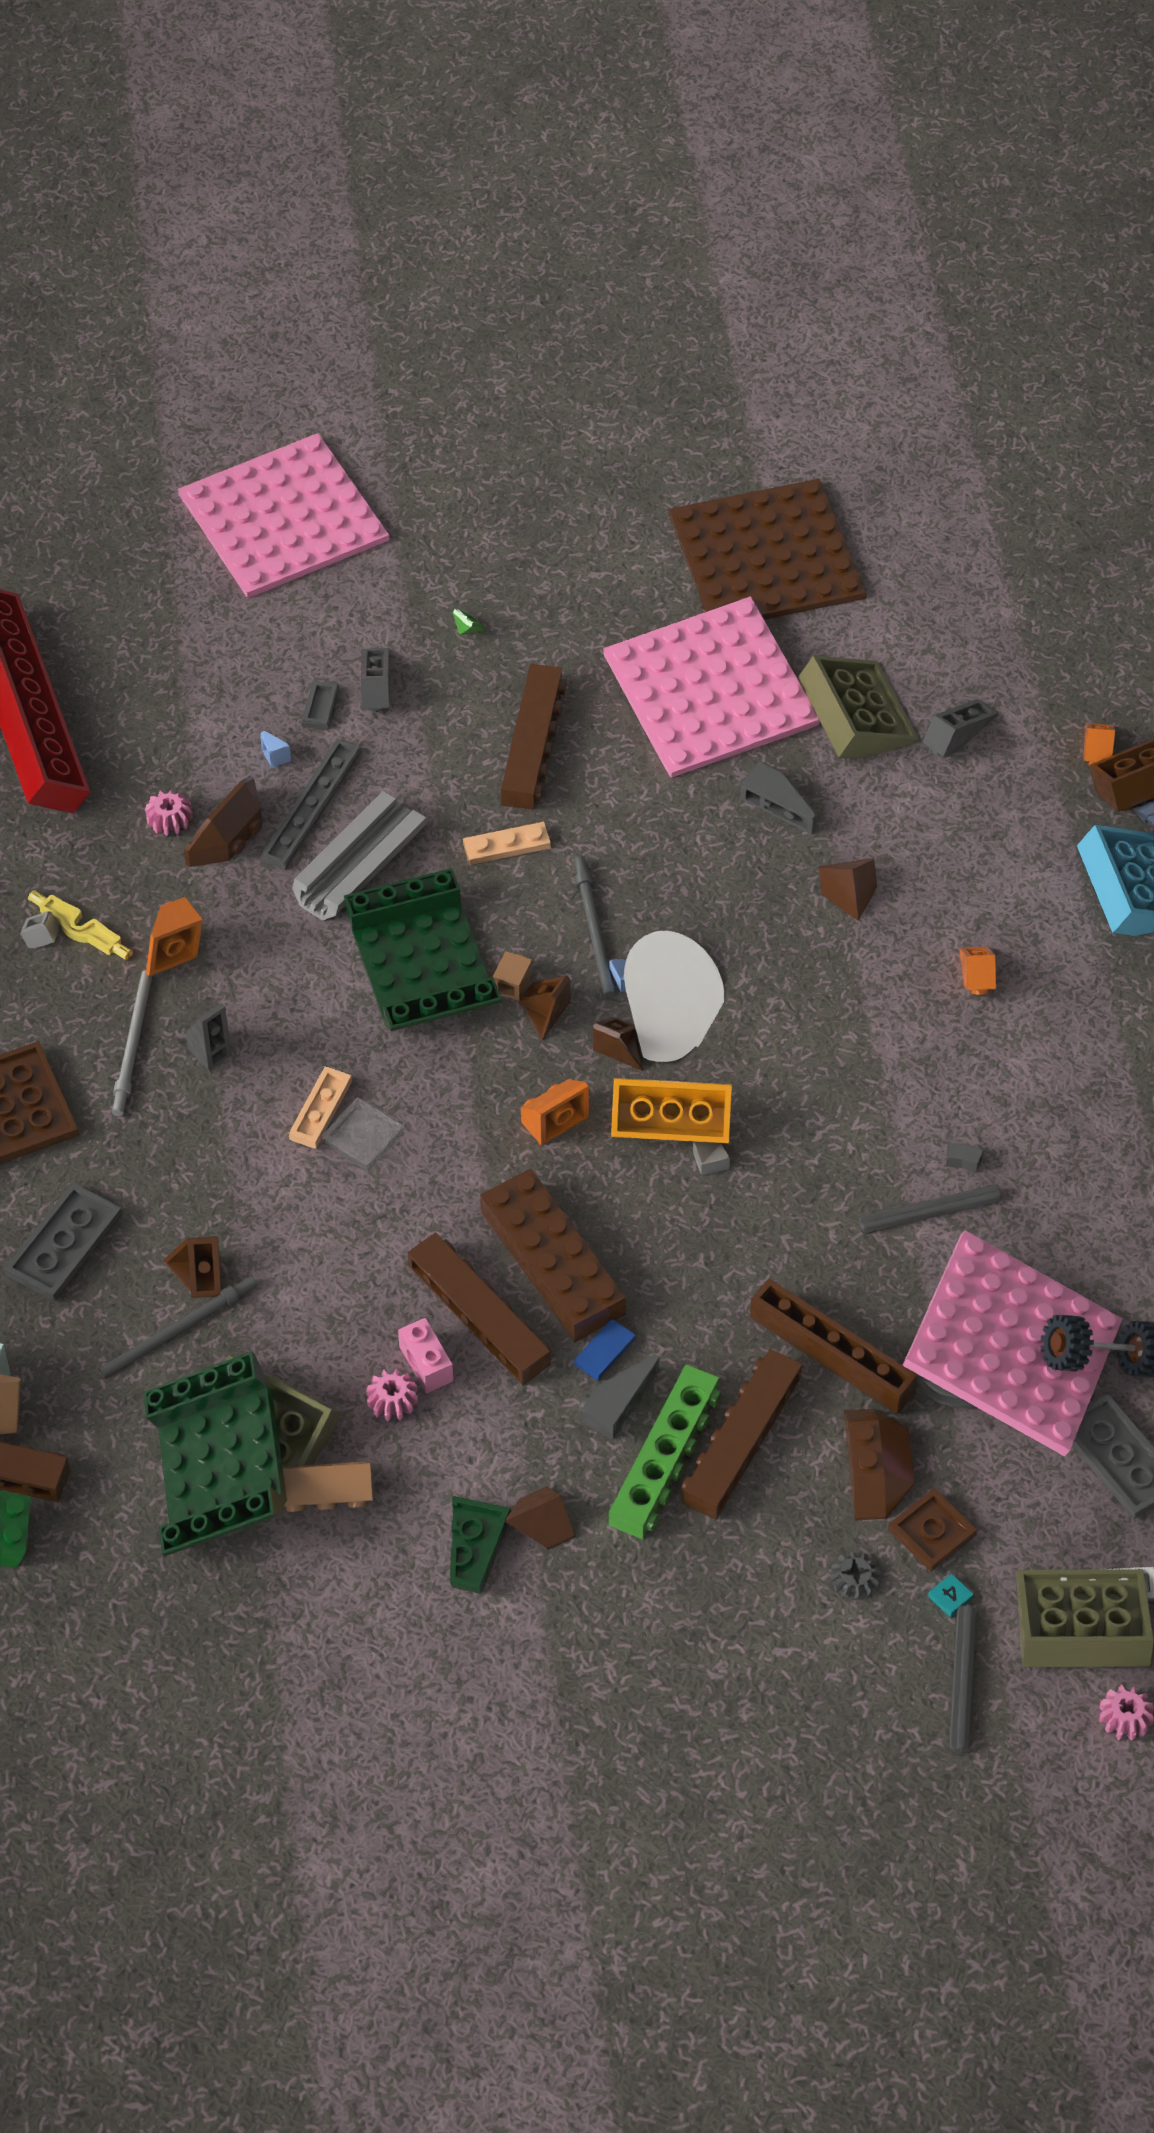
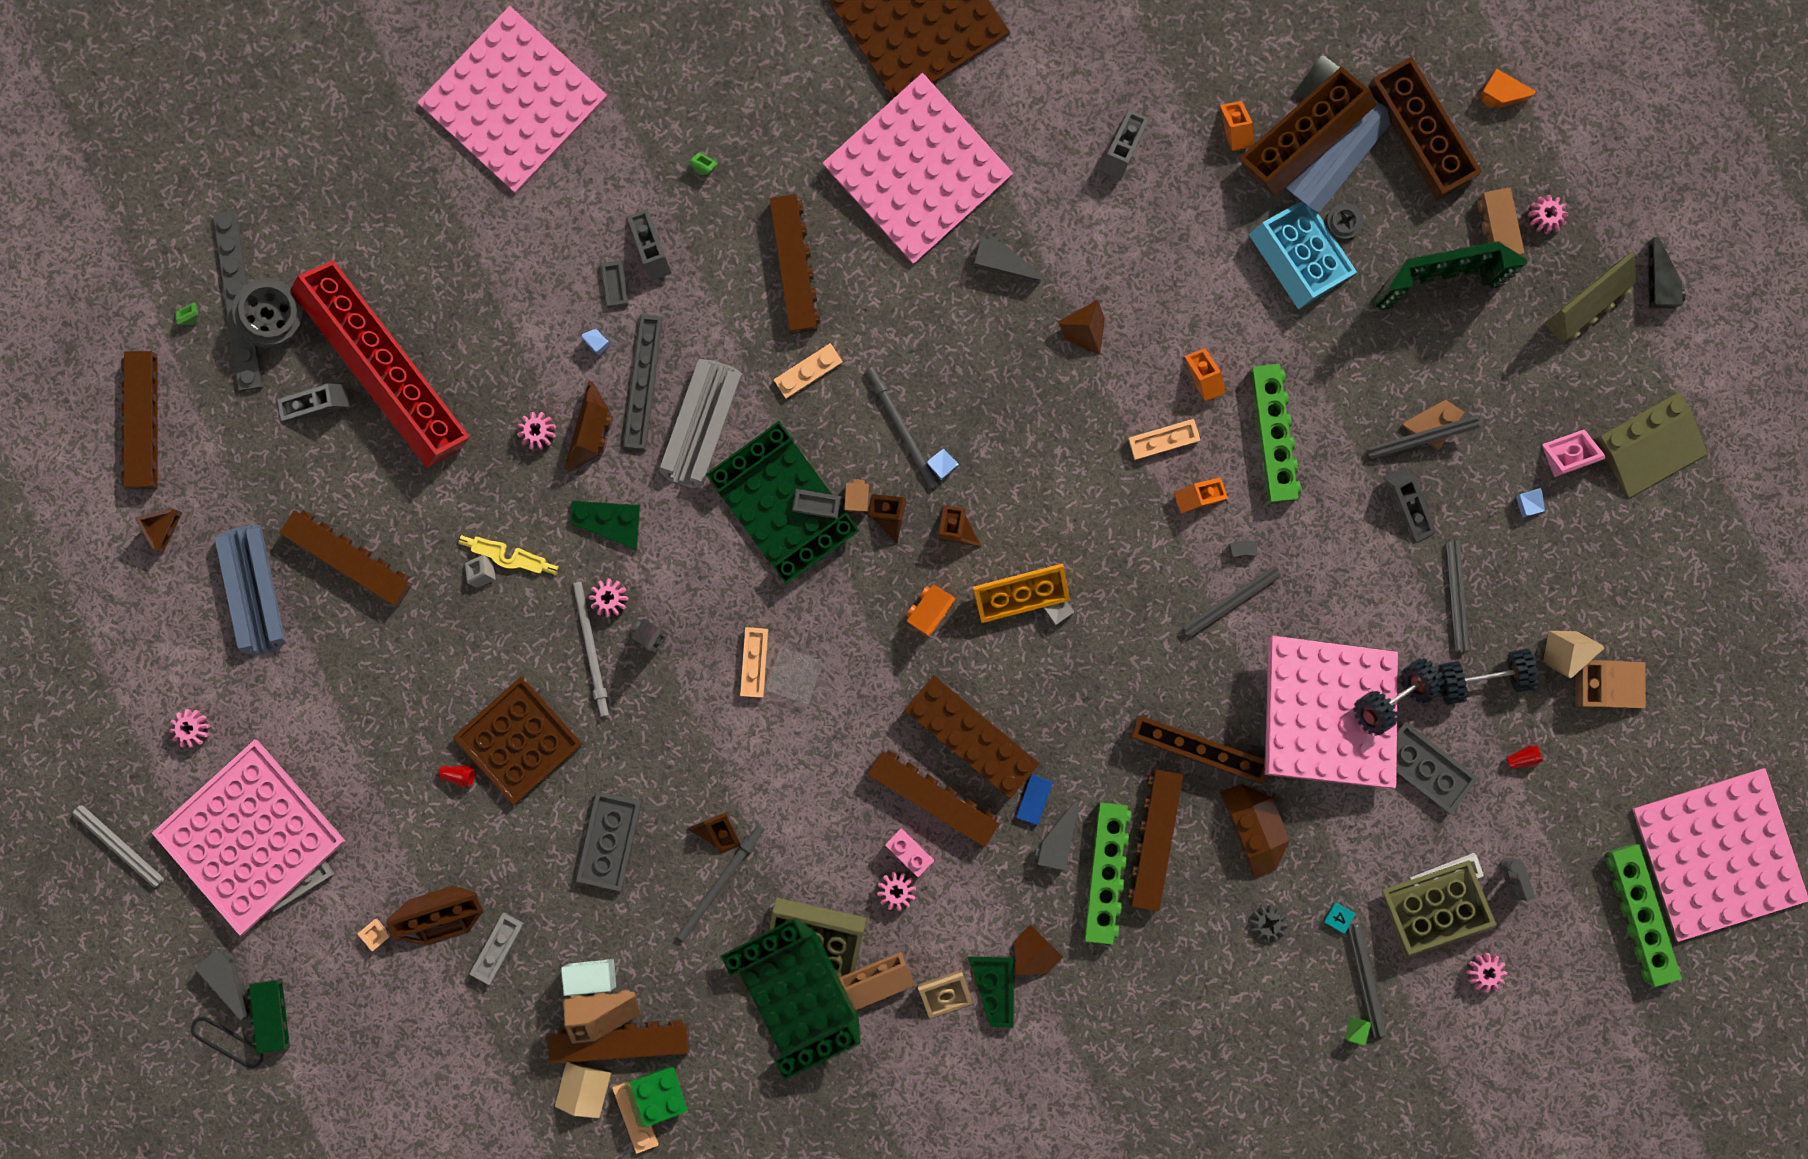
camera: 15 degrees left, 30 degrees up
(174, 936) = (588, 553): orange slope -> none
(176, 994) = (613, 604): none -> bright pink gear
(221, 925) = (608, 520): none -> dark green wing
(407, 1524) = (945, 994): none -> tan slope
(461, 964) = (816, 504): none -> dark grey tile
(671, 994) = (982, 474): white sticker -> none
(856, 706) = (1038, 151): olive slope -> none
(904, 1019) = (1164, 439): none -> light nougat plate
(928, 1084) = (1200, 495): none -> orange slope
(931, 1733) = (1357, 1030): none -> bright green slope
(932, 1529) = (1312, 872): reddish brown plate -> none
(1048, 988) = (1276, 376): none -> bright green brick

